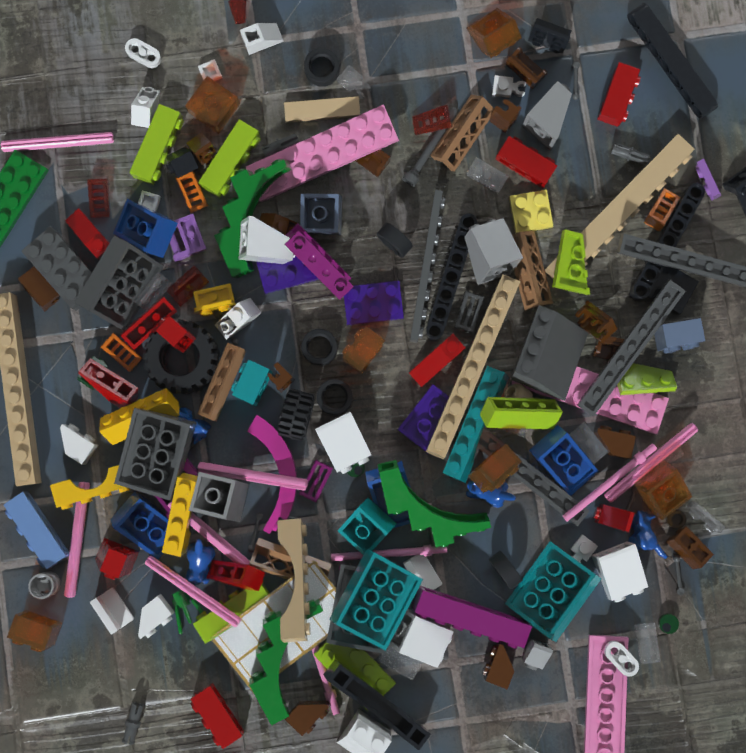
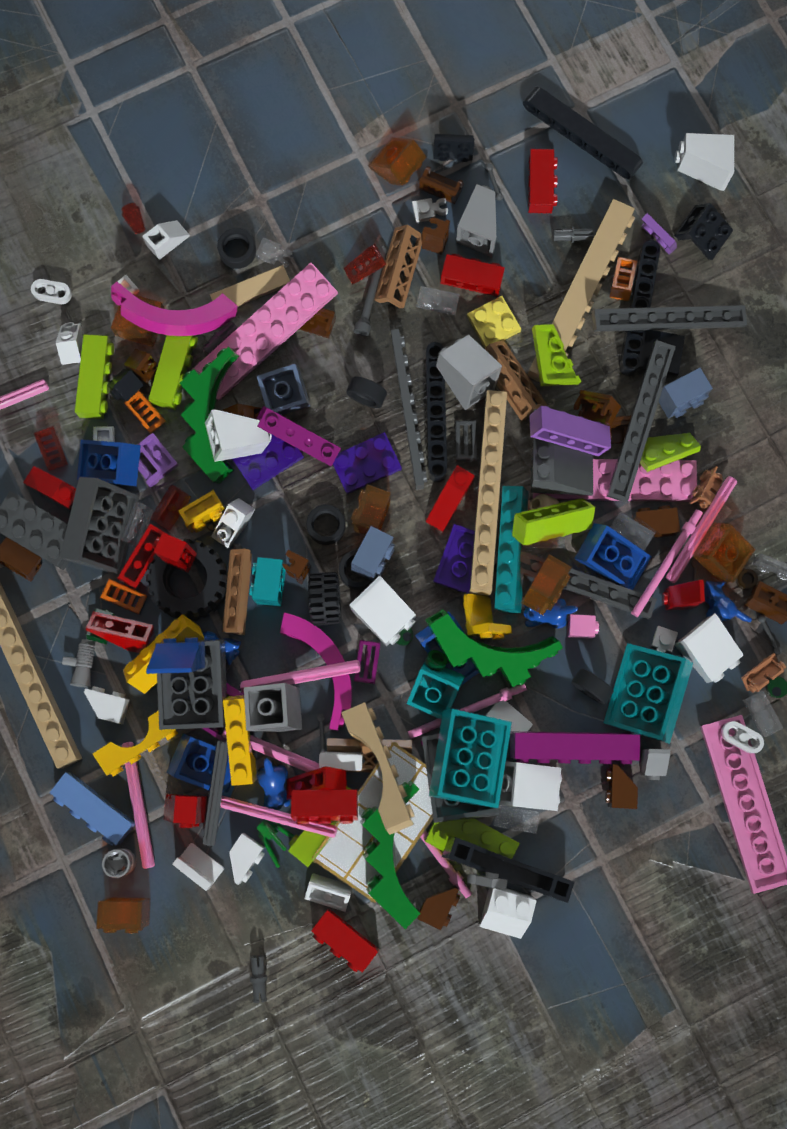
camera: 15 degrees left, 5 degrees down
(67, 400) = (83, 664): none -> light grey piece
(146, 553) = (216, 792): none -> dark grey axle
(147, 429) = (177, 656): none -> blue slope
(216, 669) = (328, 892): none -> white slope
(236, 598) = (324, 806): none -> red brick
(241, 120) = (174, 322): none -> dark pink arch
(264, 561) = (342, 760): none -> white slope
(350, 390) = (372, 554): none -> sand blue brick
(356, 709) = (489, 880): none -> light grey plate
(375, 502) = (436, 660): none -> dark green tile
(427, 477) = (480, 619): none -> yellow bracket
(515, 513) = (582, 626): none -> bright pink brick
(563, 336) = (570, 431): none -> medium lavender brick
(651, 610) = (757, 677): none -> nougat hinge
(674, 421) = (702, 493): none -> nougat hinge

